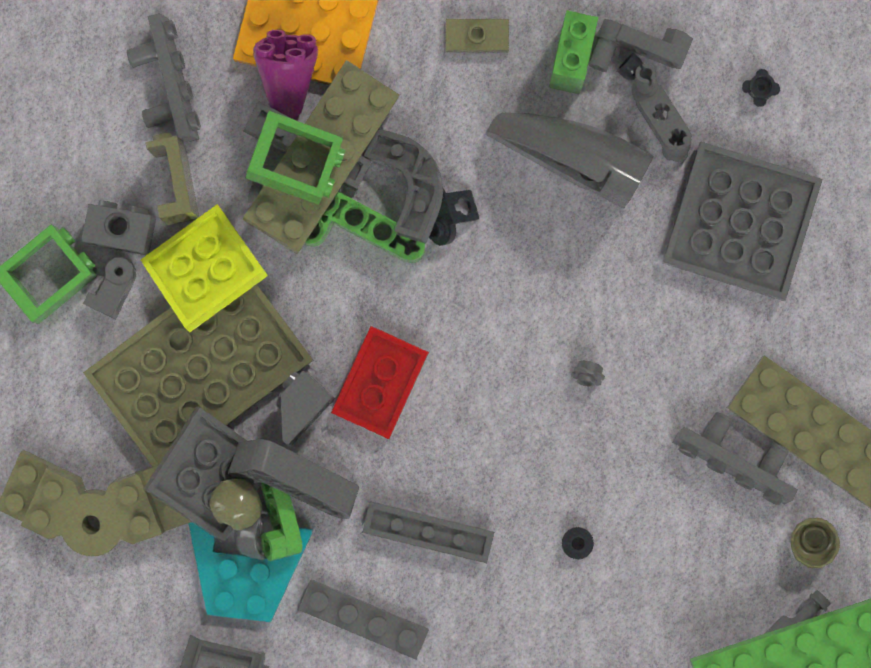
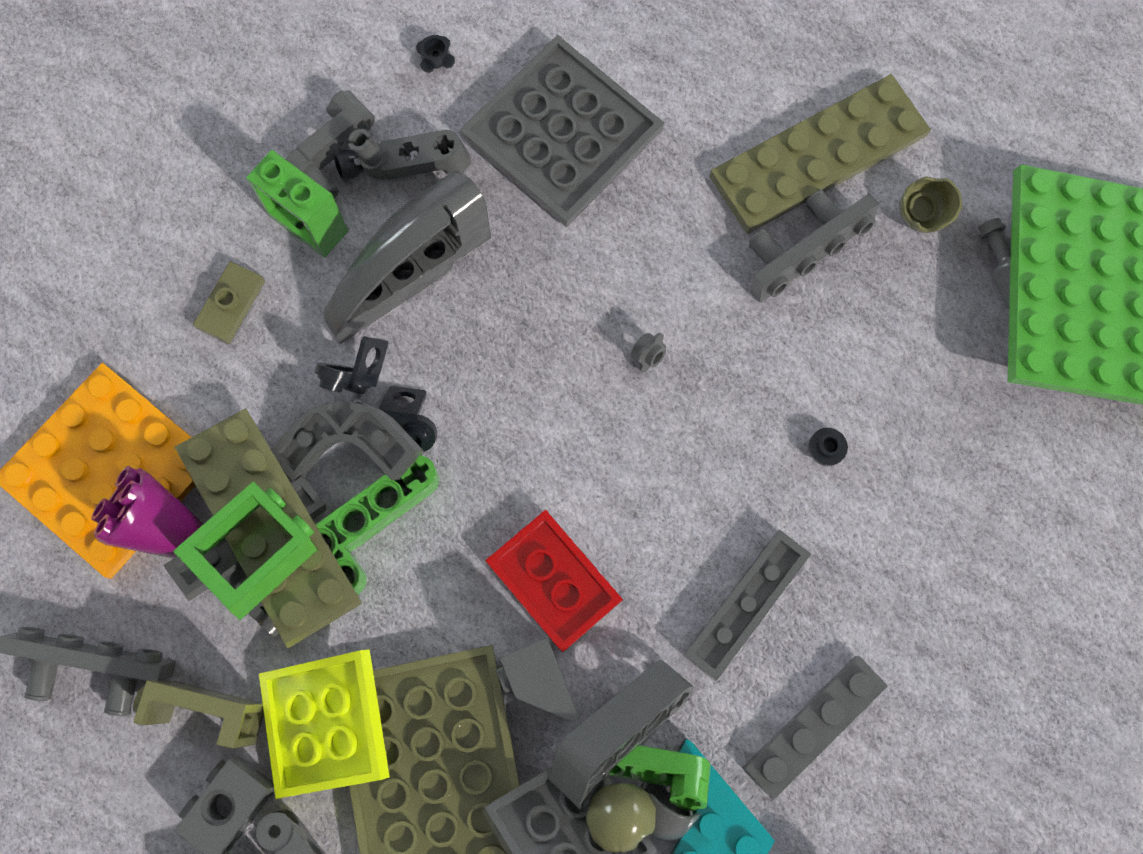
camera: 75 degrees left, 10 degrees down
(461, 159) = (355, 378): none -> black bracket

